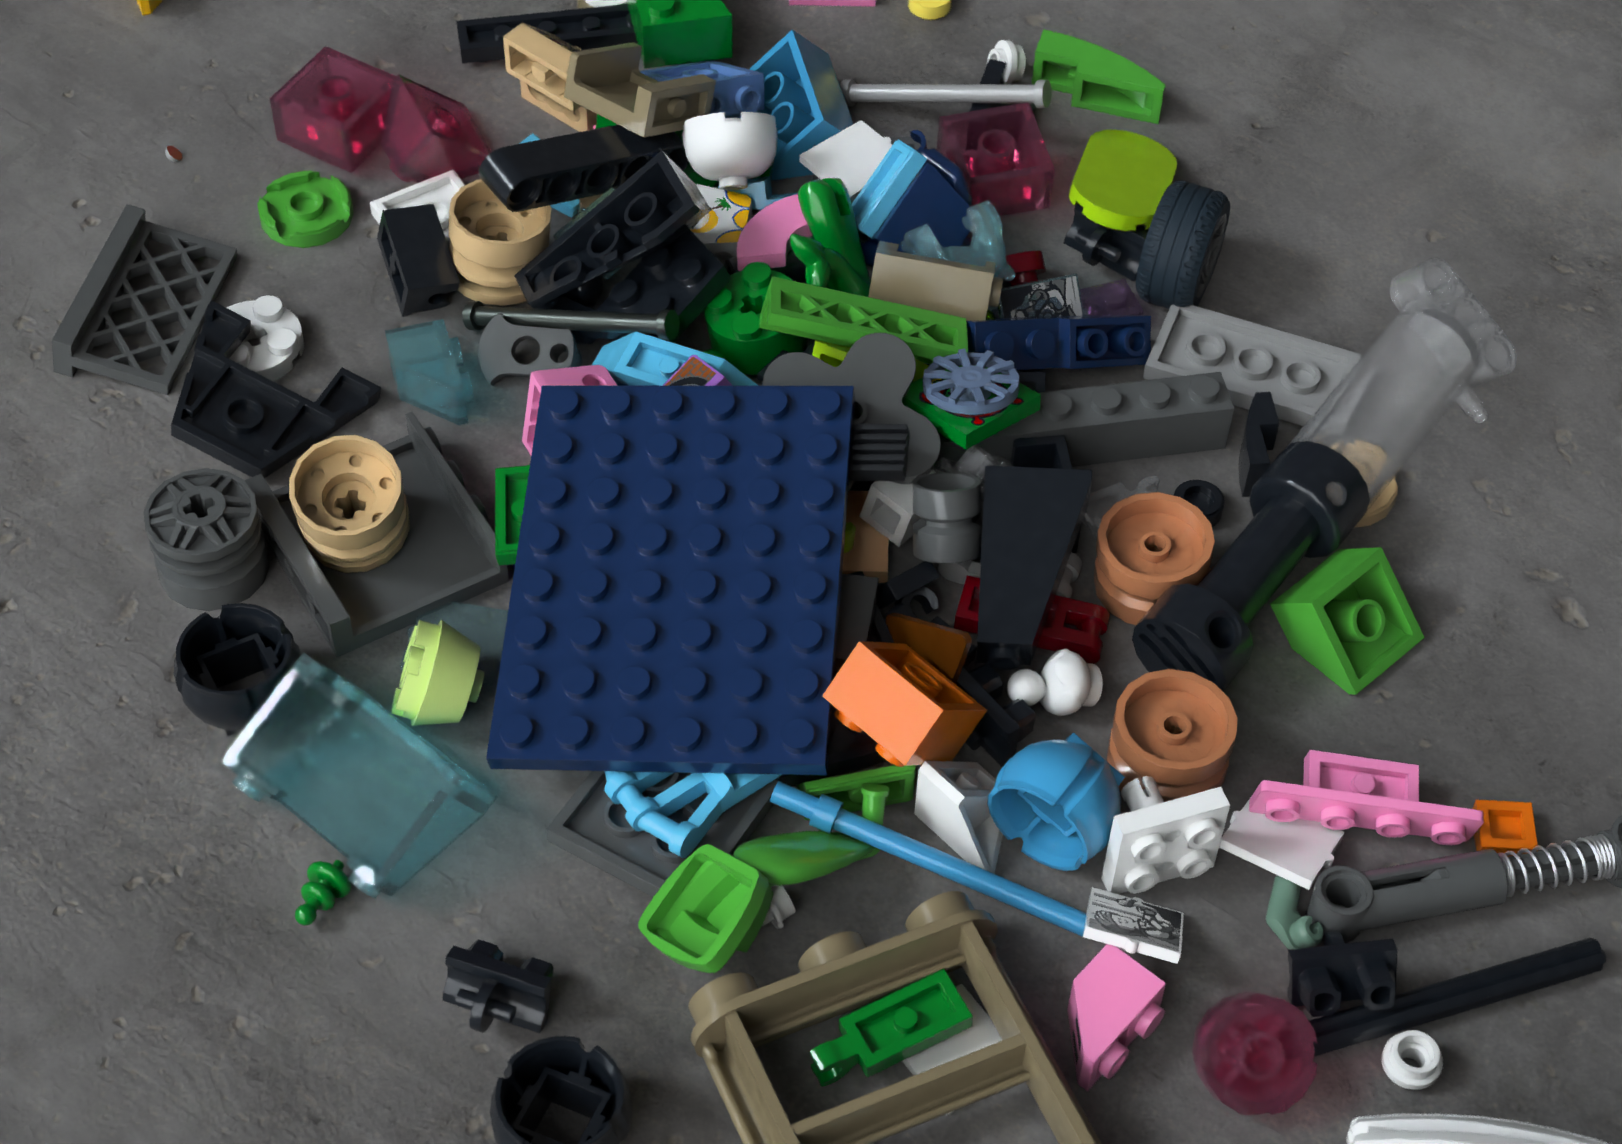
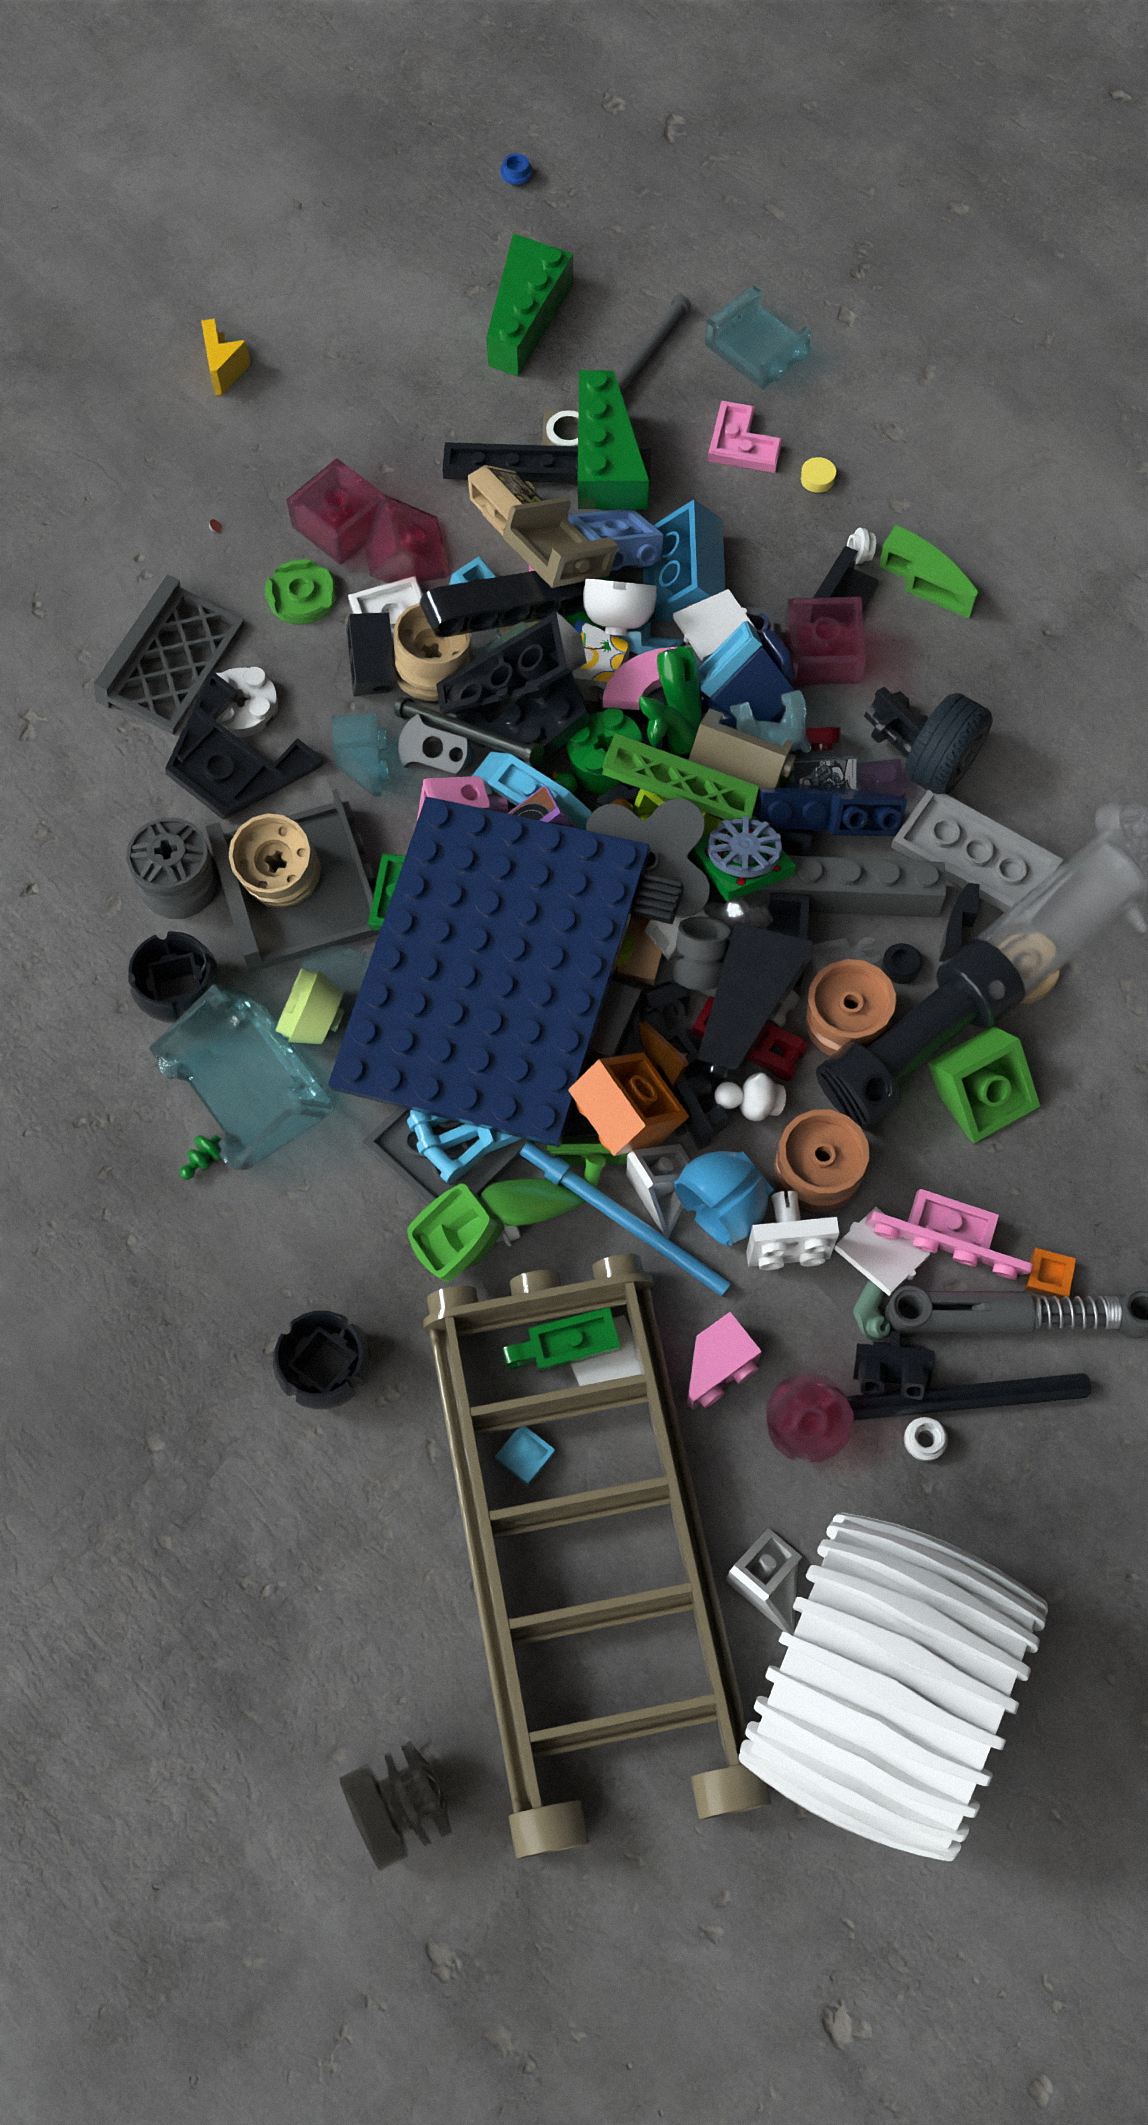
camera: 15 degrees right, 15 degrees up
(497, 989) = (302, 1259): black hips -> none
(948, 93) = (870, 590): light grey bar -> none
(1122, 179) = (920, 672): lime tile -> none
(1134, 925) = (754, 1299): piece -> none

